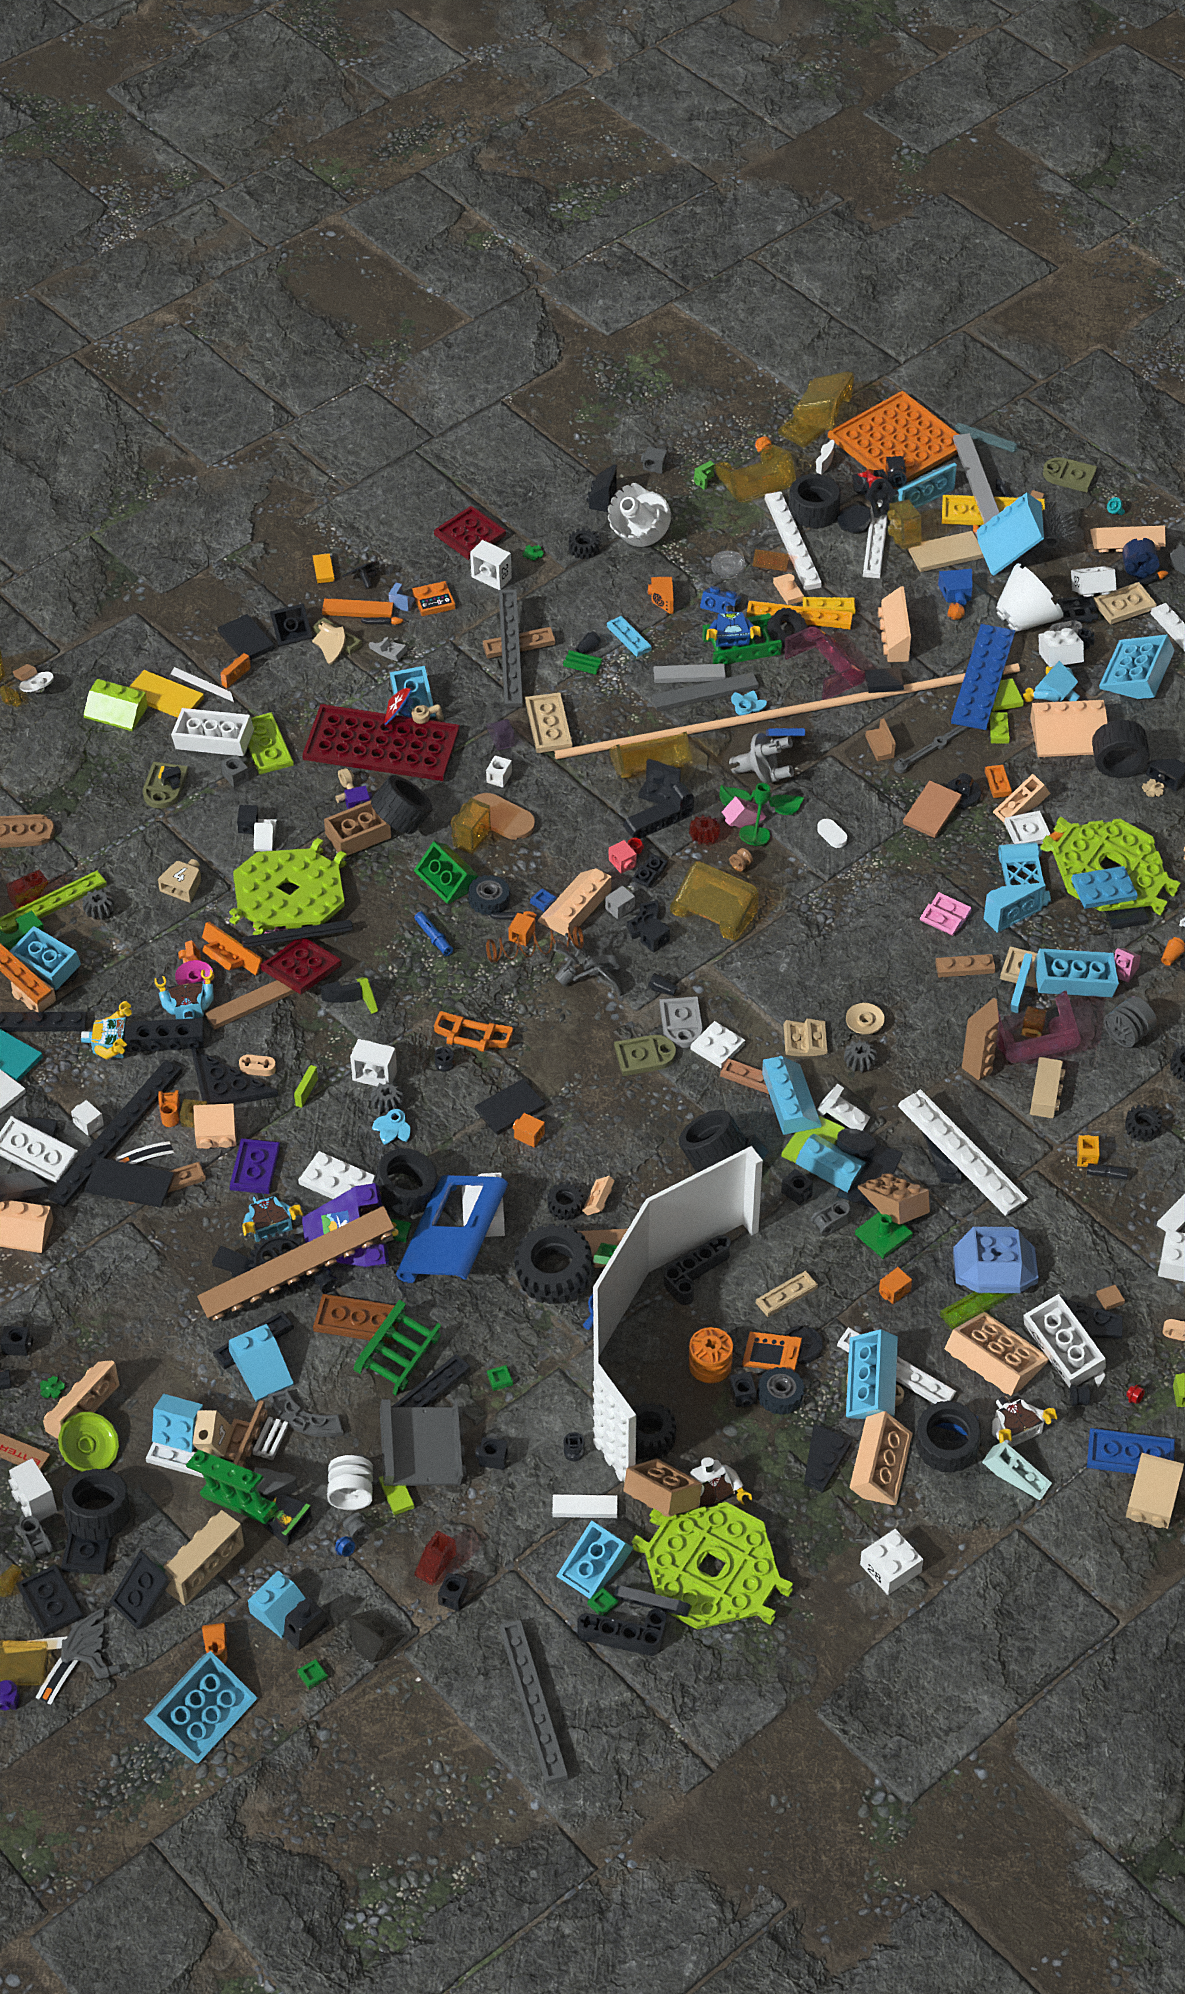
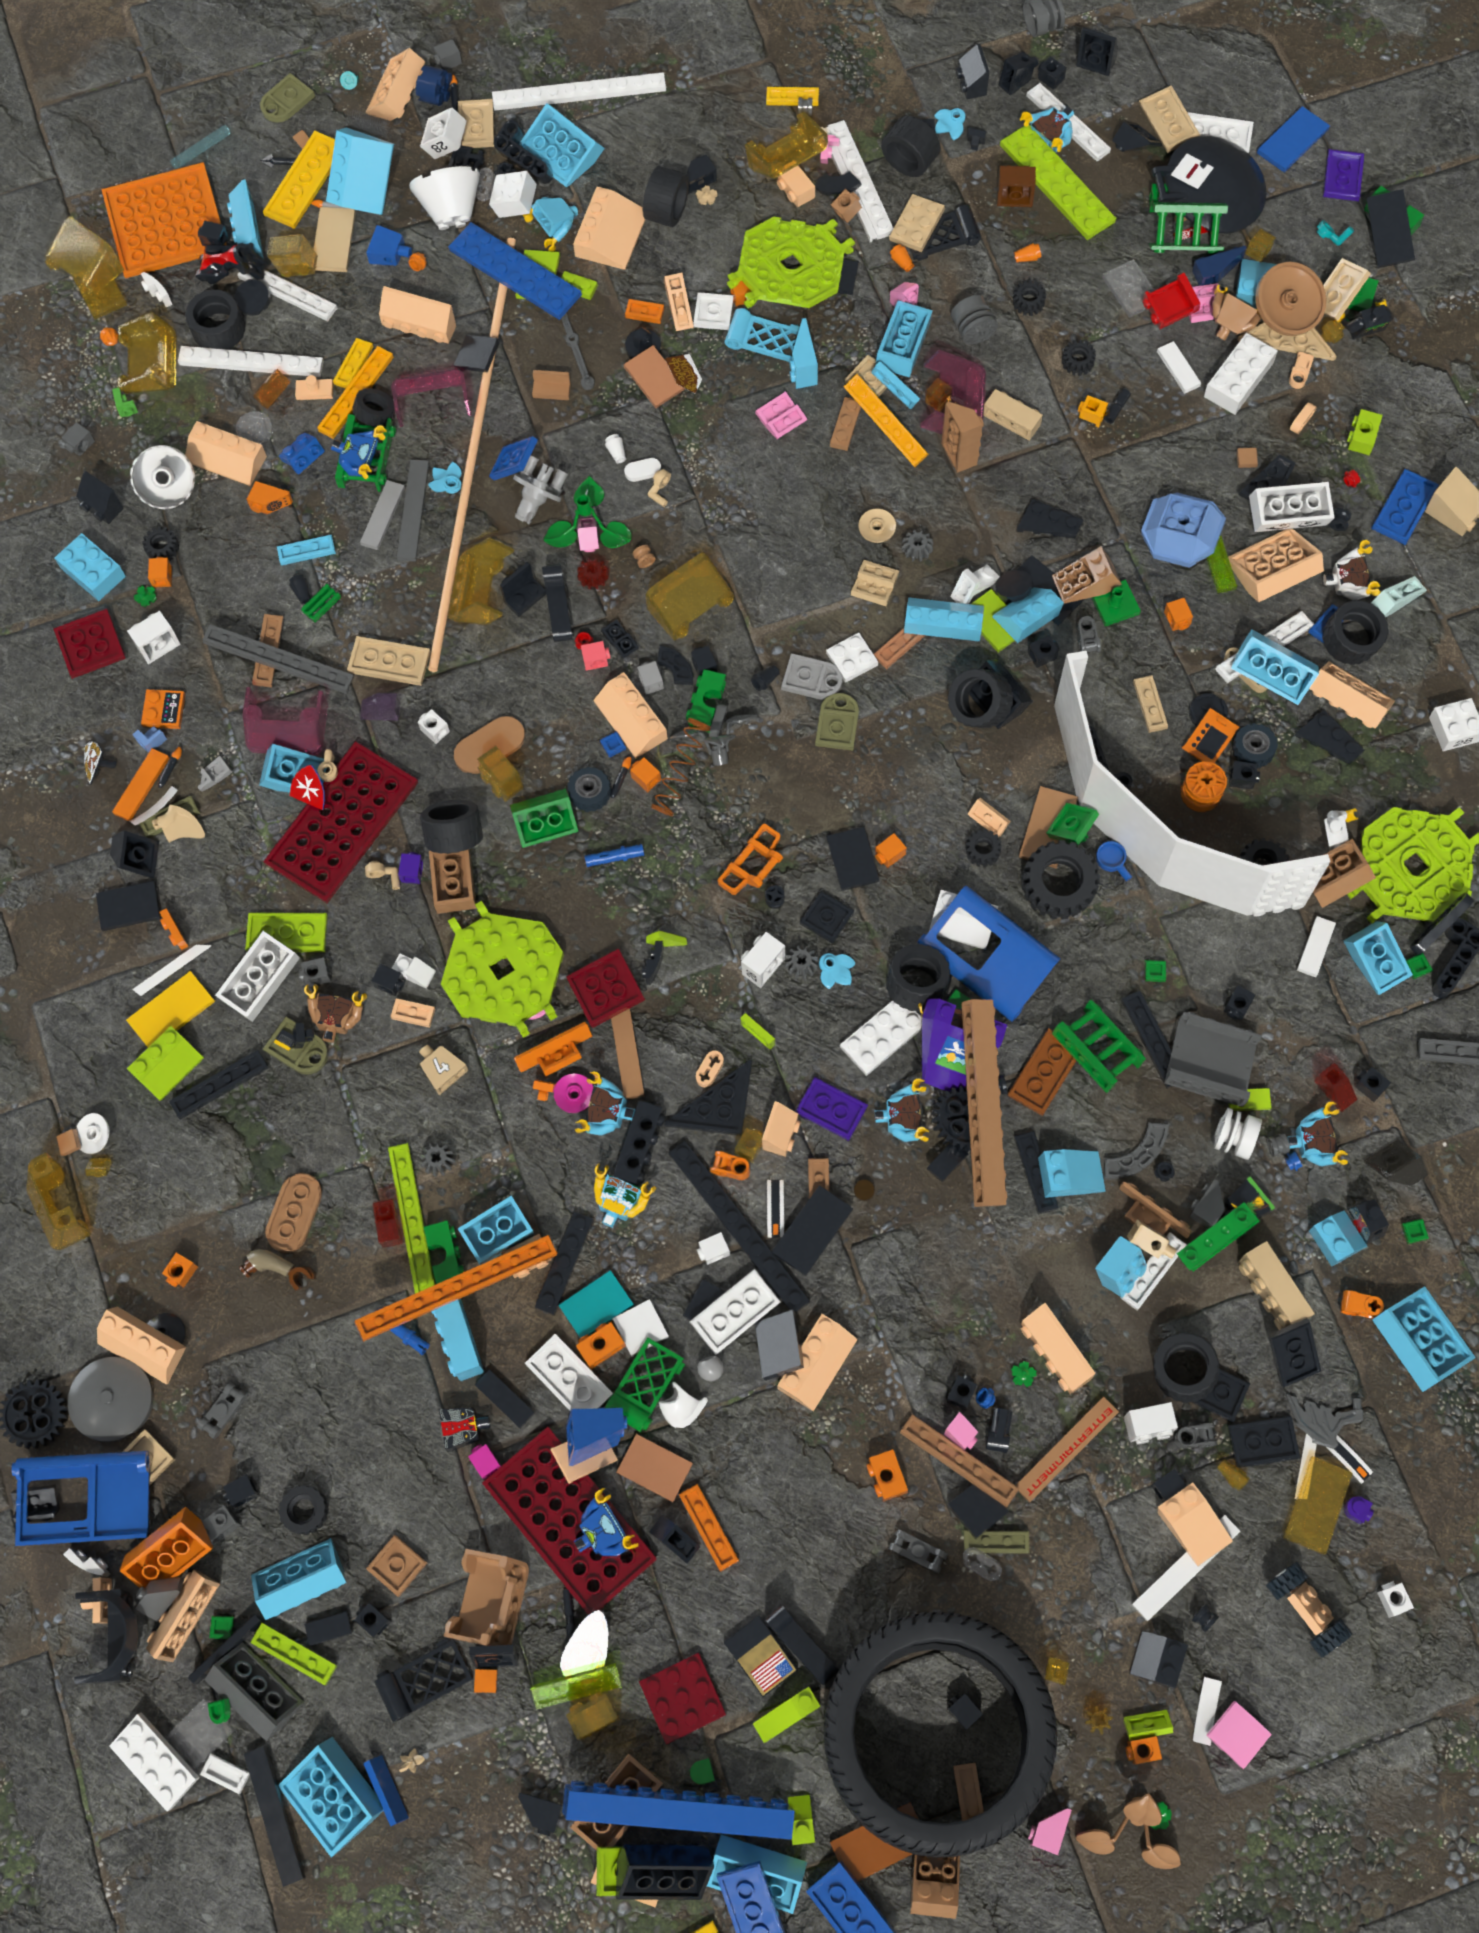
camera: 65 degrees left, 20 degrees up
(17, 1361) = (985, 1398): none -> blue plate
(88, 1441) = (1111, 1356): lime hat -> none
(110, 745) = (218, 1084): none -> black plate
(185, 1213) = (864, 1190): none -> dark brown tile
(202, 792) = (334, 1013): none -> torso
(225, 846) = (413, 1013): none -> light nougat plate
(276, 1424) = (1157, 1184): white tile -> none
(290, 1437) = (1169, 1171): none -> black plate
(297, 933) = (566, 979): black axle -> none
(323, 568) = (65, 799): light orange tile -> none
(337, 623) = (155, 808): none -> white sticker
(376, 1557) = (1317, 1138): none -> torso
(442, 1106) = (827, 917): none -> black tile
(449, 689) = (300, 735): none -> clear pink windscreen
(538, 507) = (90, 567): none -> medium azure brick
(557, 551) = (160, 572): none -> orange brick
(574, 1446) = (1255, 937): black wheel -> none
(630, 945) = (709, 686): none -> green arch
(691, 552) = (224, 453): none -> light nougat slope
(826, 847) = (661, 479): none -> tan plate
(842, 806) = (615, 447): none -> white cone
(894, 472) = (229, 235): black wheel -> none
(950, 829) = (684, 372): none -> sticker
(963, 1152) = (1059, 506): white plate -> none
(976, 476) = (261, 174): light grey tile -> none
(981, 988) = (886, 420): none -> light orange plate
(1104, 887) = (820, 276): dark azure plate -> none
(1110, 631) = (524, 157): none -> black beam

